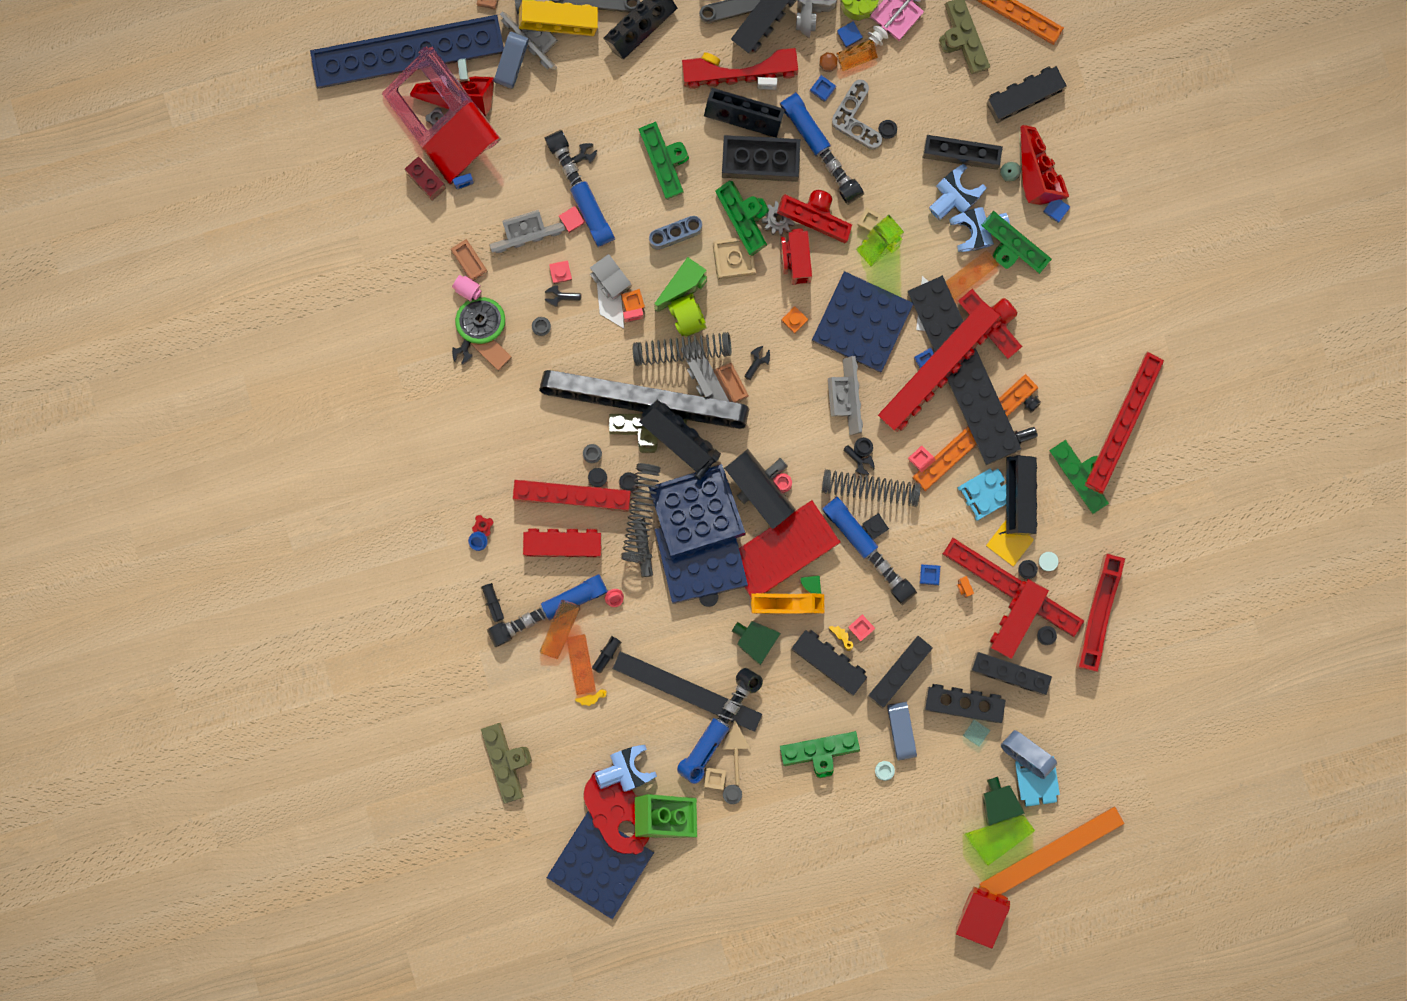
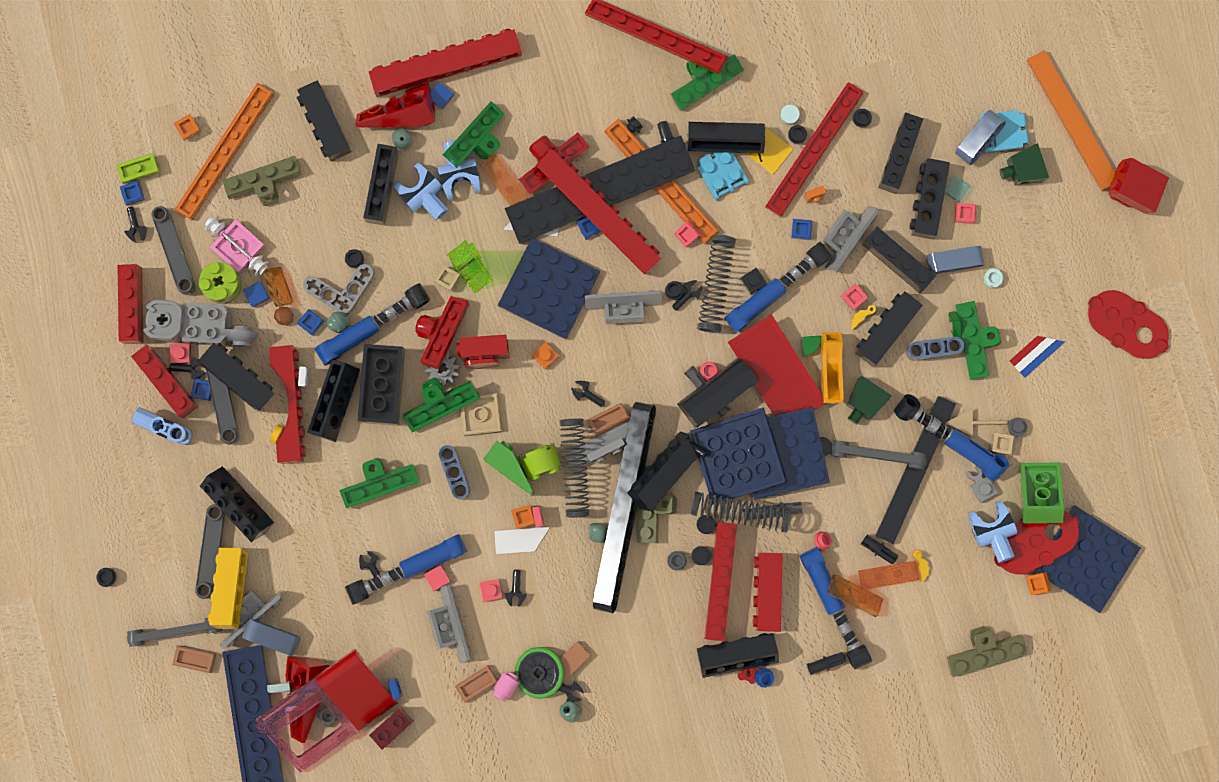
camera: 90 degrees left, 0 degrees up
(442, 351) = (570, 711): none -> sand green piece
(499, 513) = (737, 655): none -> black brick
(541, 326) = (546, 610): dark grey plate -> none
(574, 814) = (1038, 583): none -> orange plate
(610, 277) = (498, 539): light grey brick -> none
(618, 374) = (598, 532): none -> sand green piece
(670, 759) = (982, 487): none -> light grey plate
(695, 688) = (915, 460): none -> dark grey piece
(807, 813) = (1034, 354): none -> sticker
(811, 699) = (942, 343): none -> sand blue beam
(823, 114) = (338, 322): none -> sand green piece
(835, 730) = (956, 324): none -> green tile
(847, 901) = (1120, 317): none -> red piece
(925, 618) = (846, 234): none -> light grey bracket
(951, 742) = (965, 213): none -> coral tile
(997, 839) = (1062, 168): clear neon green wedge -> none
(1019, 618) = (847, 143): red brick -> none
(1090, 213) = (445, 63): none -> red brick
(1099, 613) = (817, 59): red arch -> none

